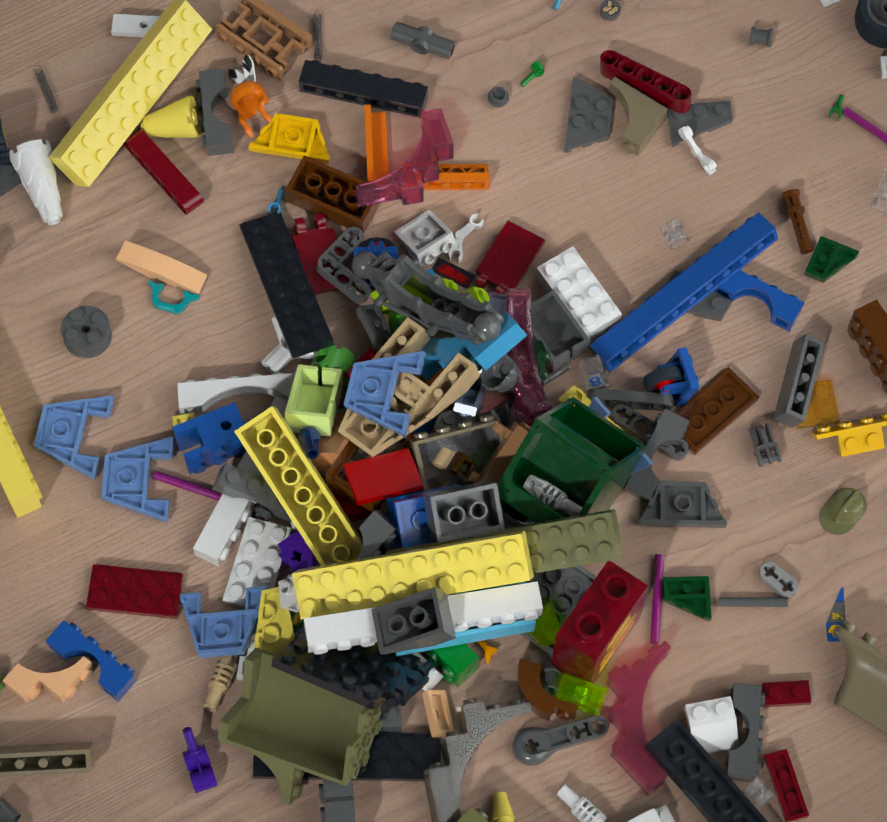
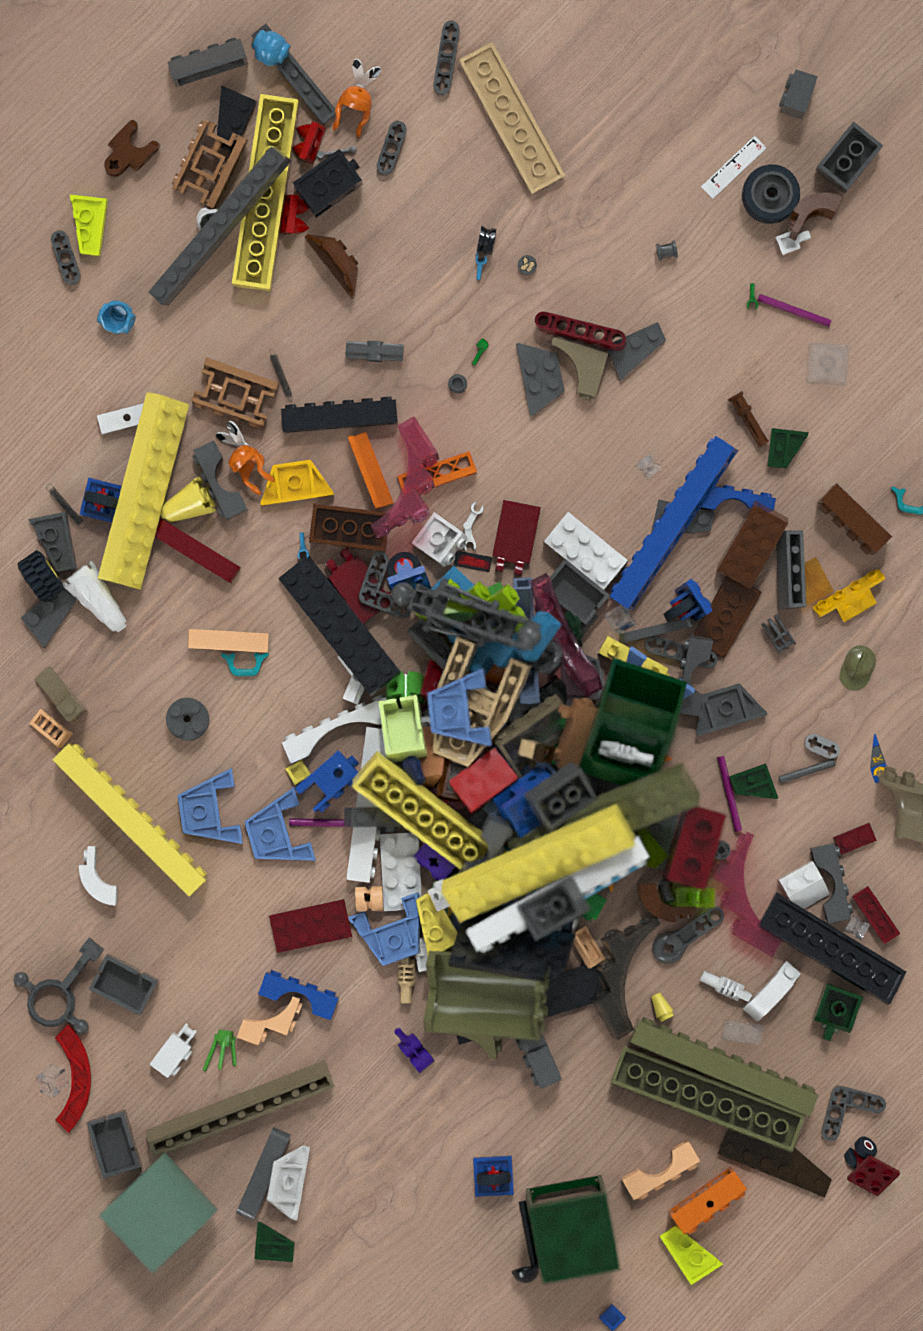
camera: 20 degrees left, 20 degrees up
(23, 115) = (56, 537): none -> dark grey wing
(80, 91) = (100, 500): none -> blue plate
(210, 579) = (376, 898): none -> light nougat wheel
(626, 657) = (724, 848): none -> dark grey wheel
(706, 162) = (659, 391): white piece -> none
(764, 339) = (752, 544): none -> reddish brown brick

